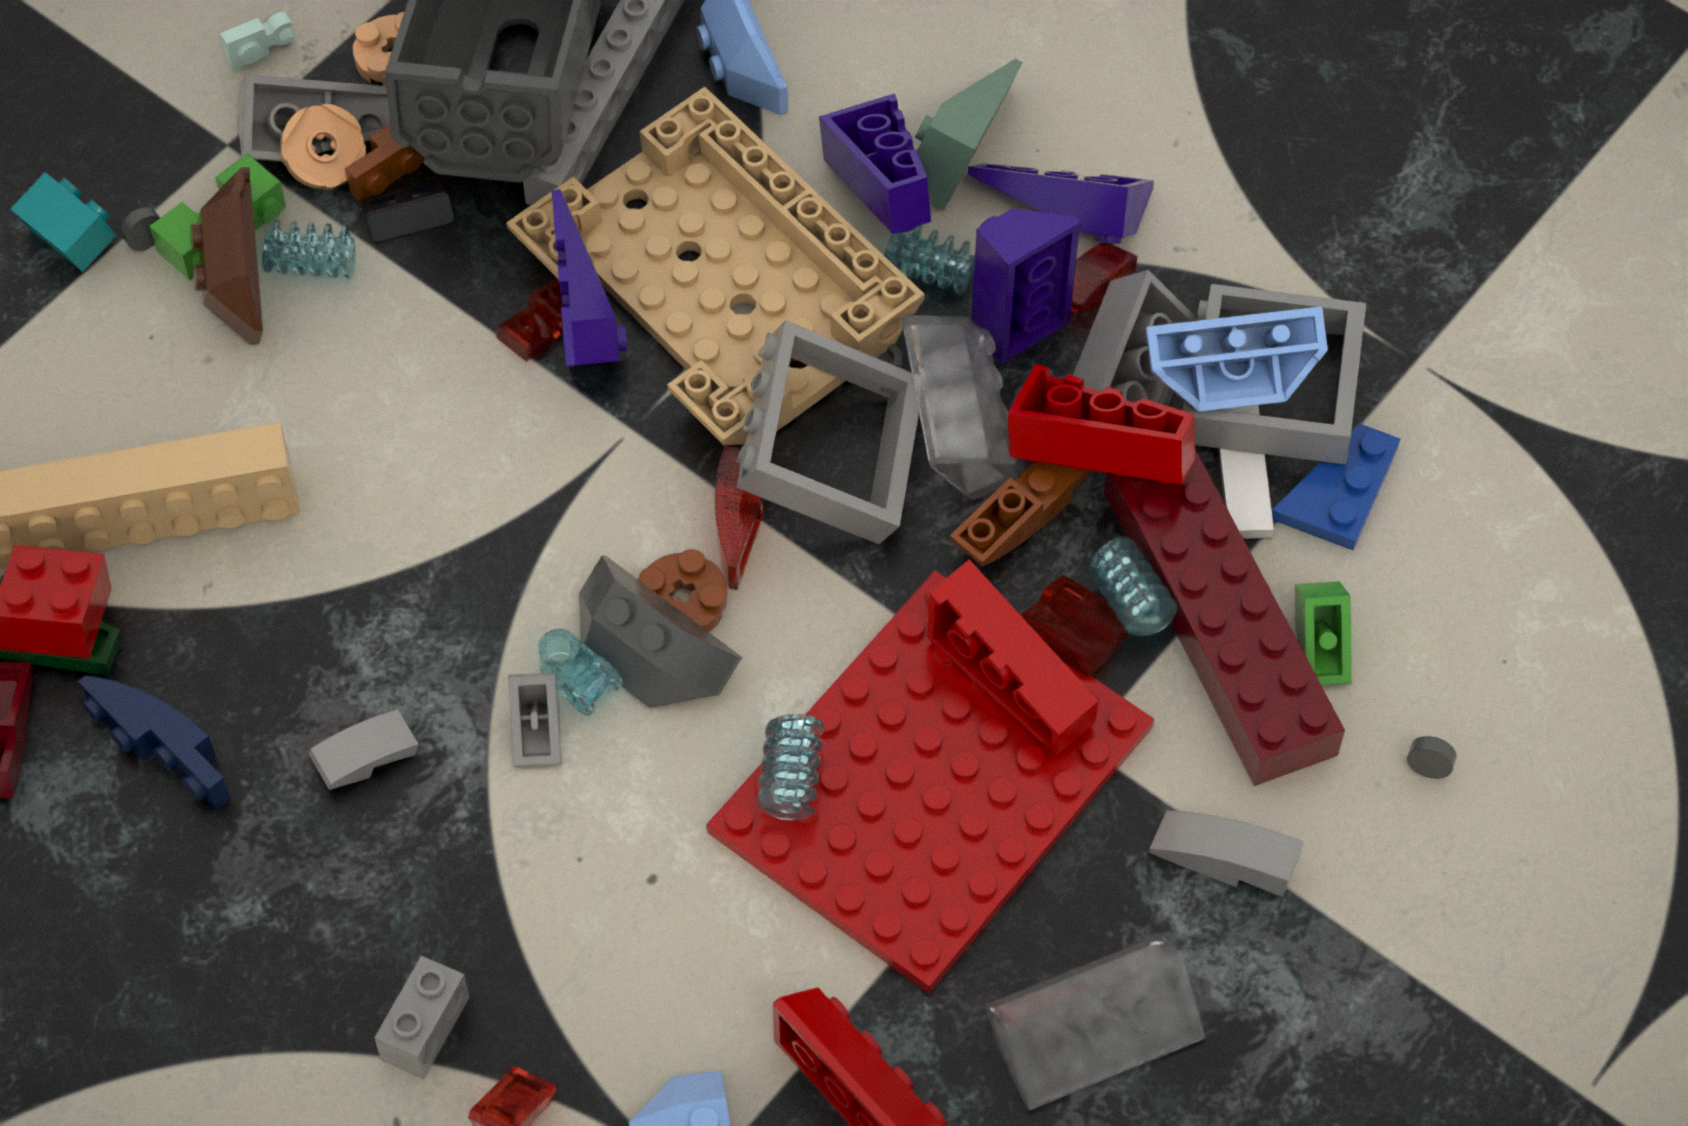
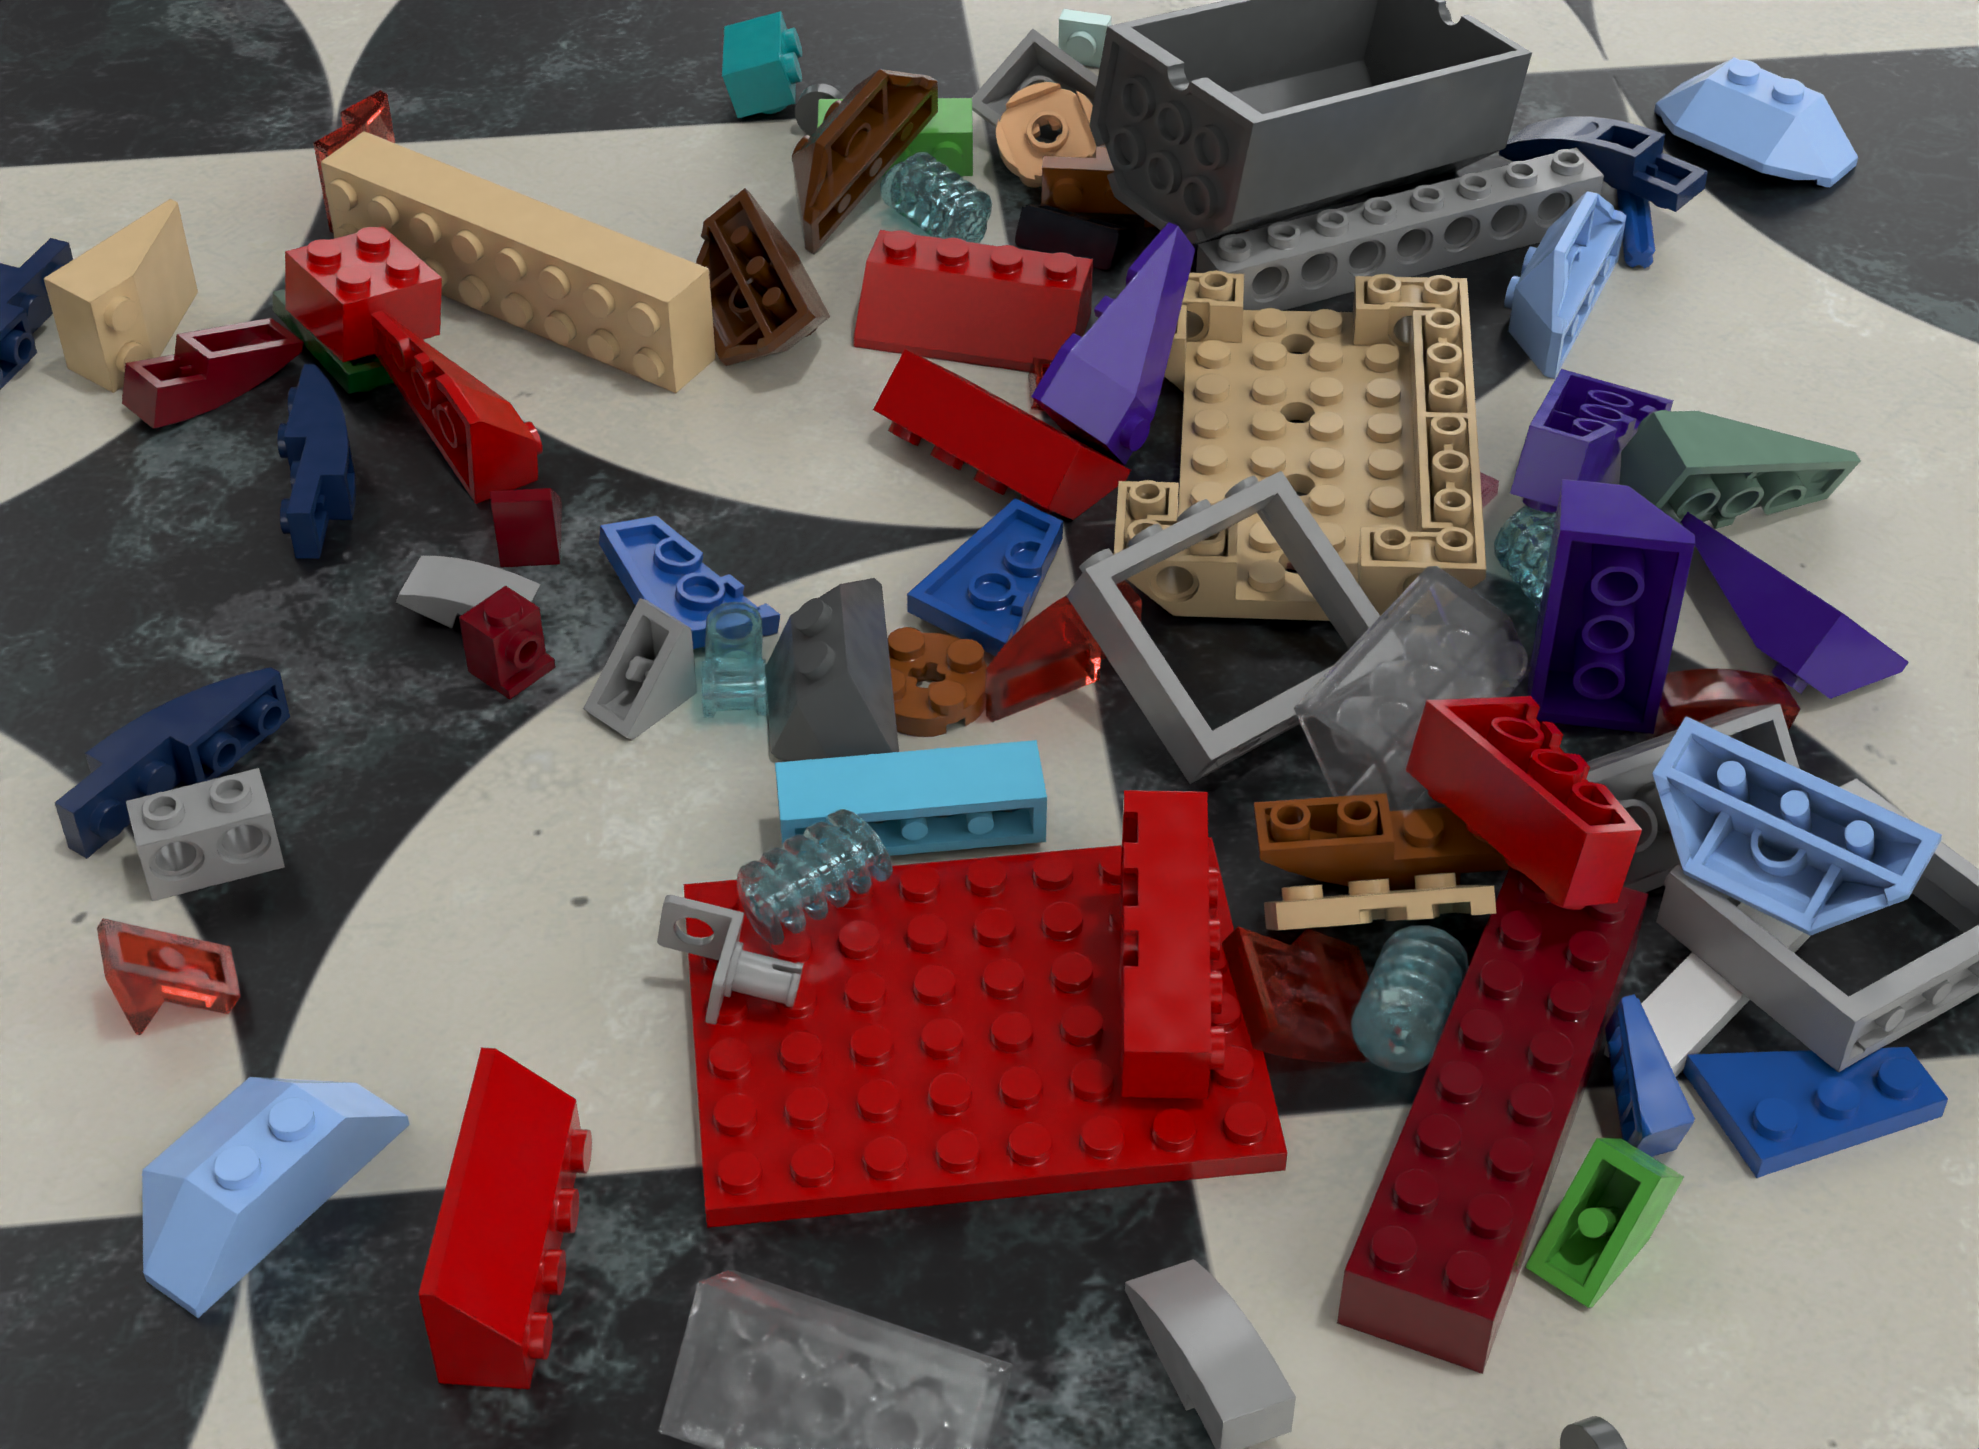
camera: 45 degrees right, 15 degrees down
(223, 638) = (464, 417): none -> red wedge
(260, 390) = (756, 284): none -> reddish brown wedge
(329, 984) = (177, 742): none -> dark blue slope
(341, 674) = (527, 526): none -> dark red slope
(418, 313) = (971, 300): none -> red slope
(434, 763) = (505, 642): none -> dark red brick
(474, 647) = (670, 574): none -> blue wing
(543, 402) = (995, 438): none -> red slope
(645, 501) = (991, 578): none -> blue wing
(772, 677) = (918, 787): none -> medium azure brick
(808, 850) = (736, 968): none -> light grey bracket
(1077, 527) = (1373, 900): none -> tan wing
(1277, 546) = (1647, 1094): none -> blue slope

